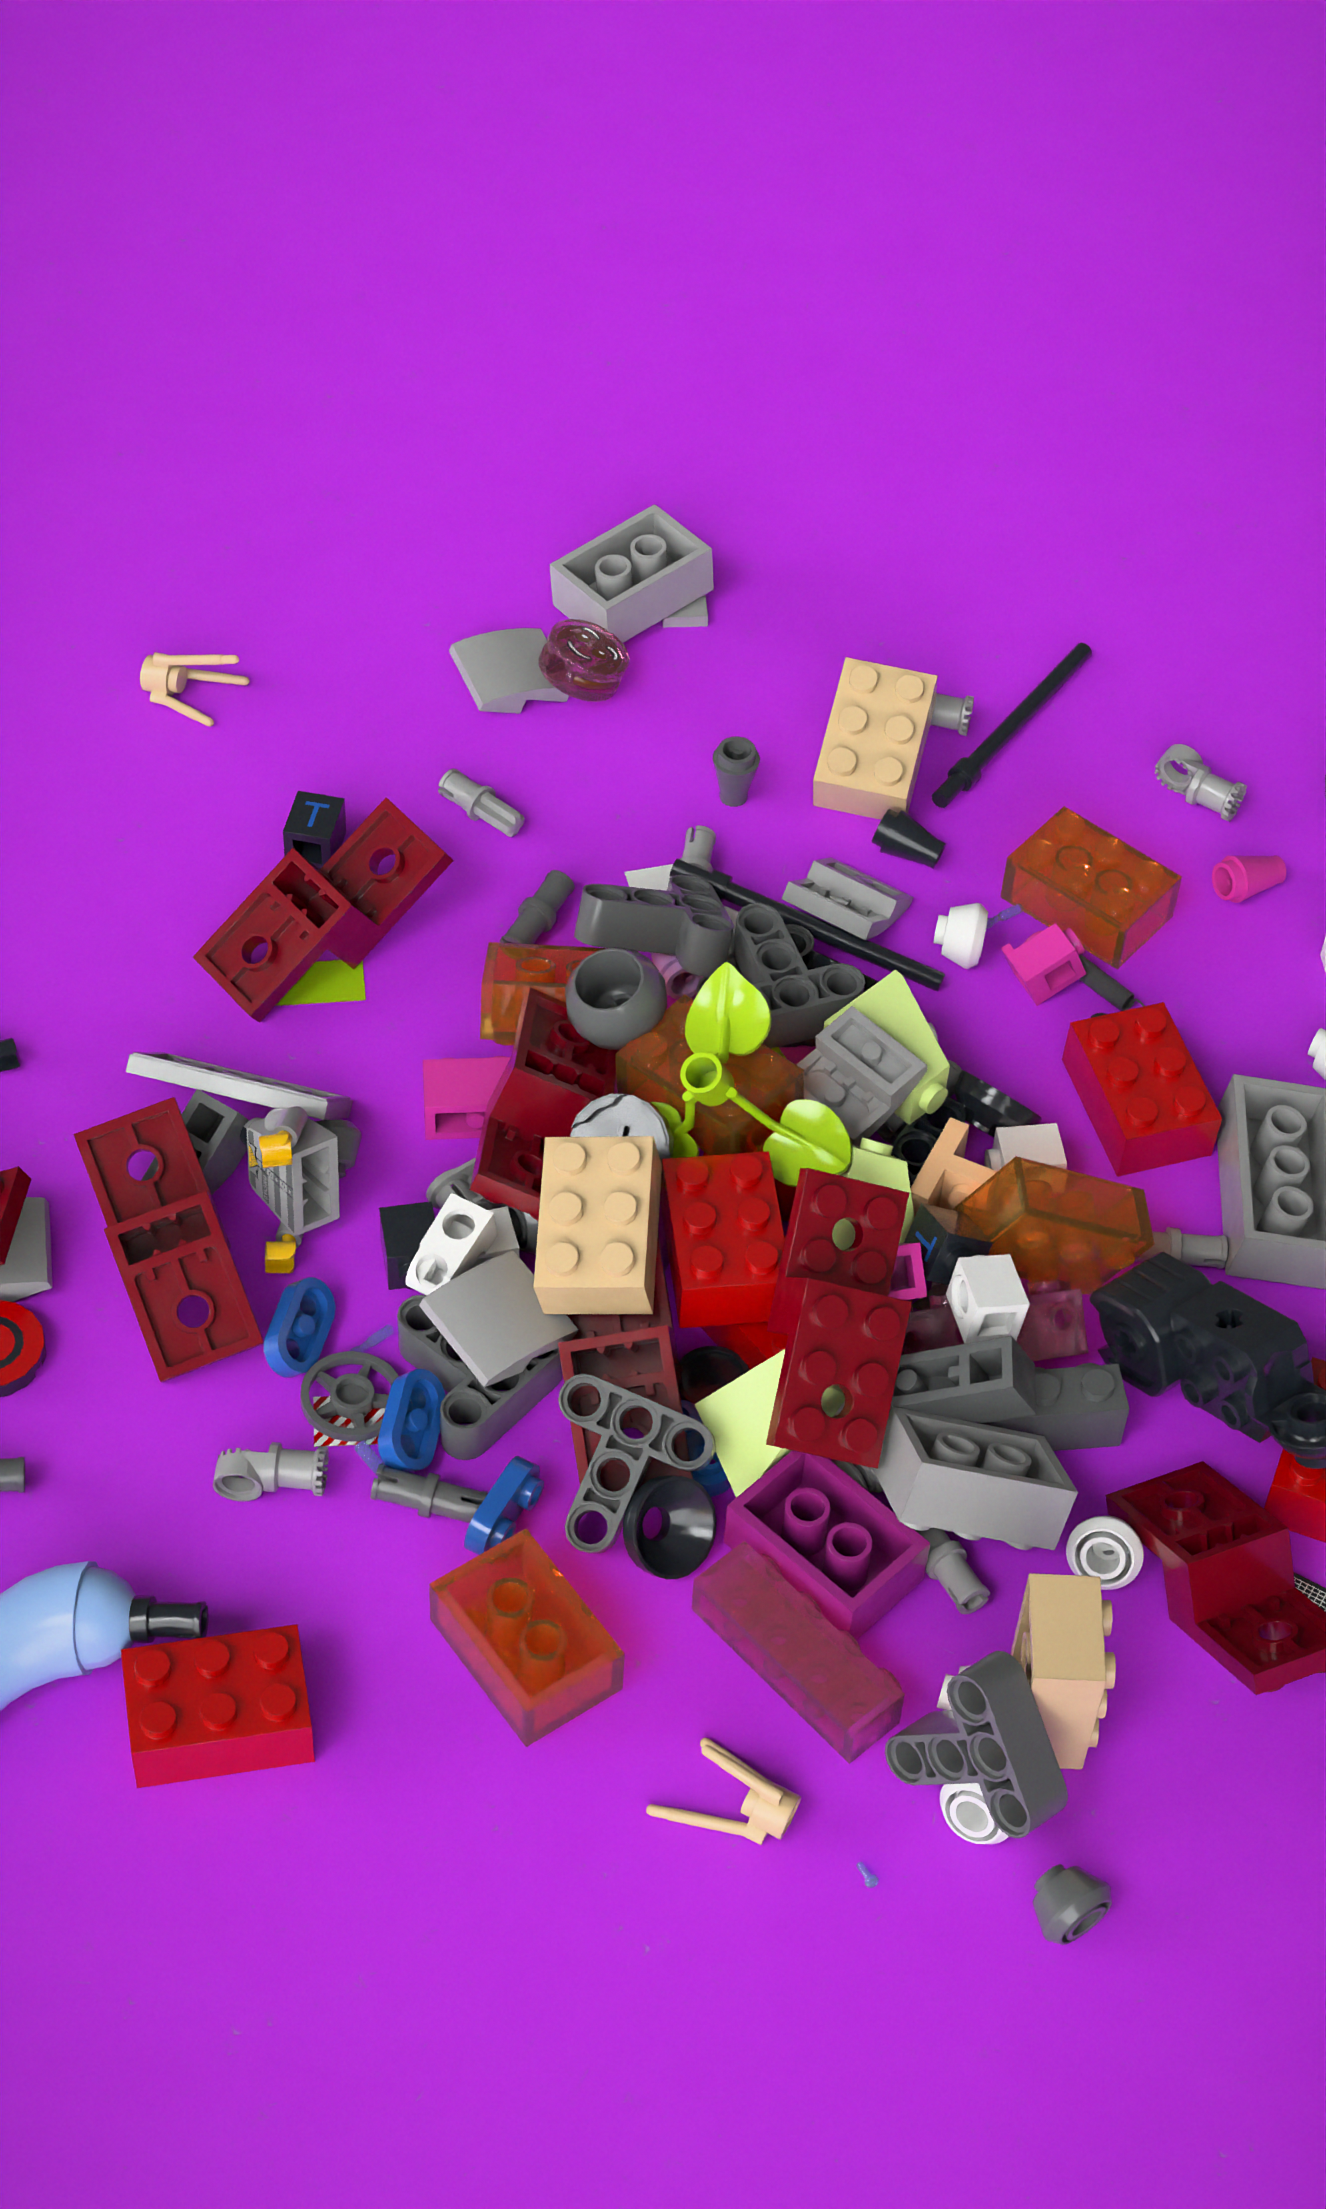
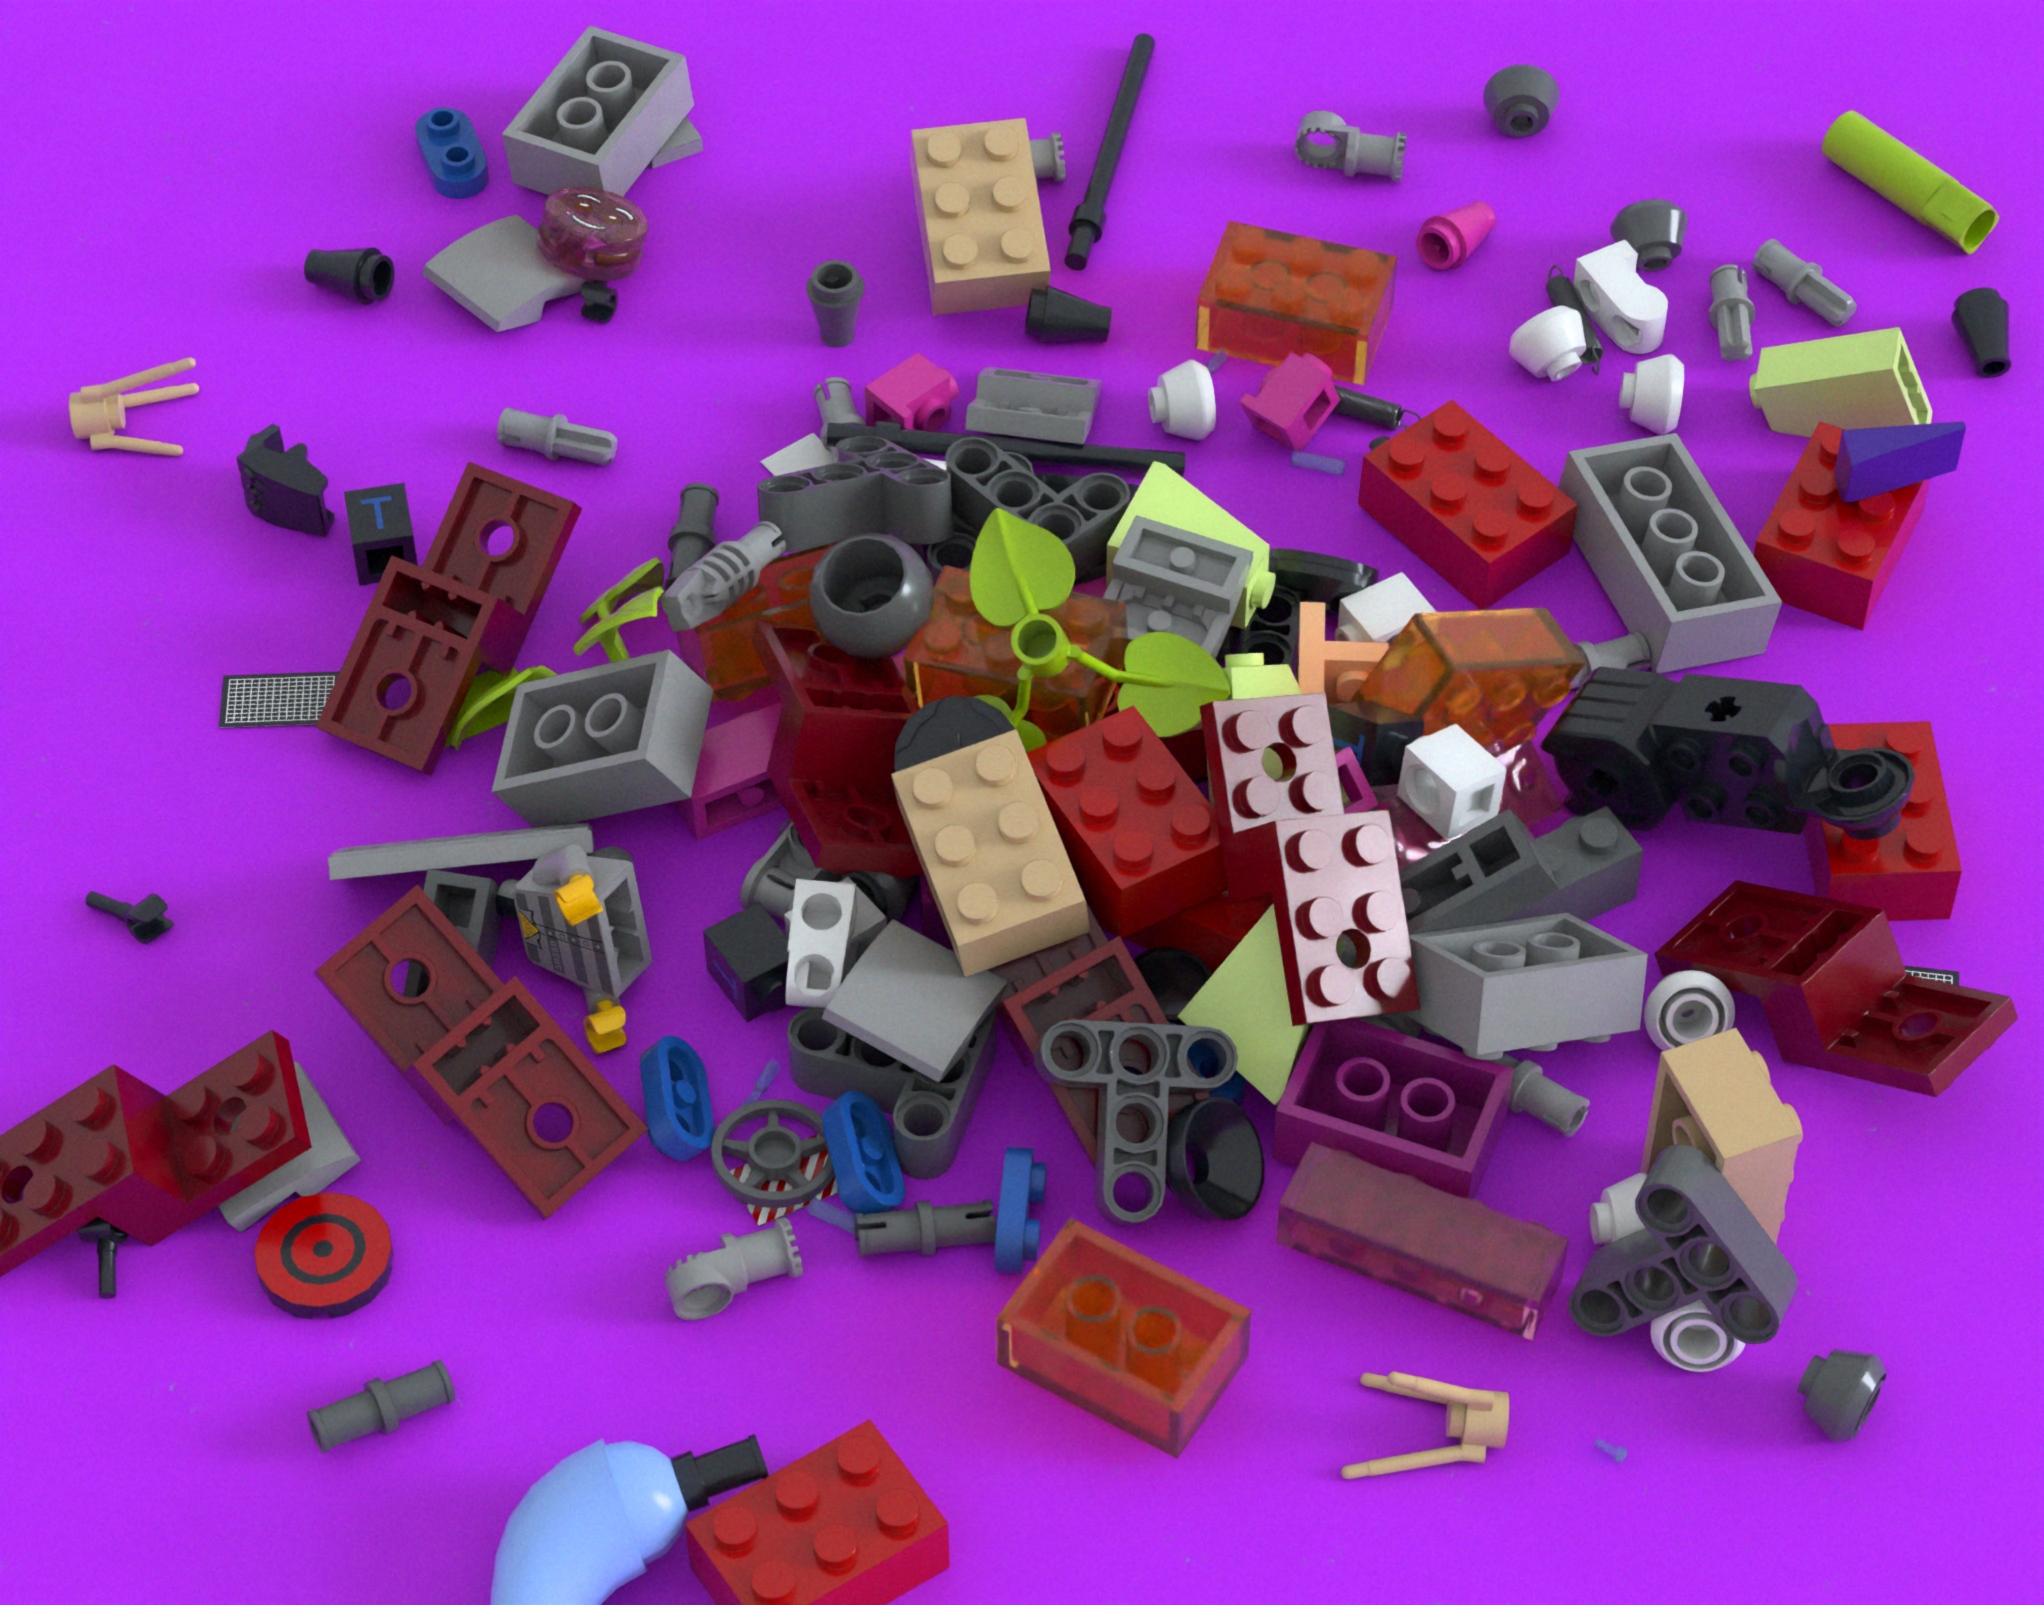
camera: 20 degrees left, 0 degrees up
(176, 925) = (274, 699): none -> black sticker
(263, 771) = (283, 484): none -> hand
(378, 1039) = (603, 740): none -> light grey brick
(400, 634) = (355, 273): none -> cone
(421, 1007) = (645, 577): none -> lime plant
(520, 569) = (451, 153): none -> blue plate
(521, 946) = (721, 577): none -> light grey hinge
(568, 713) = (599, 301): none -> black hand
(756, 861) = (912, 394): none -> dark pink brick
(1048, 1017) = (1318, 462): none -> clear light blue piece
(1275, 985) = (1550, 343): none -> white cone
(1310, 973) = (1563, 294): none -> dark grey piece

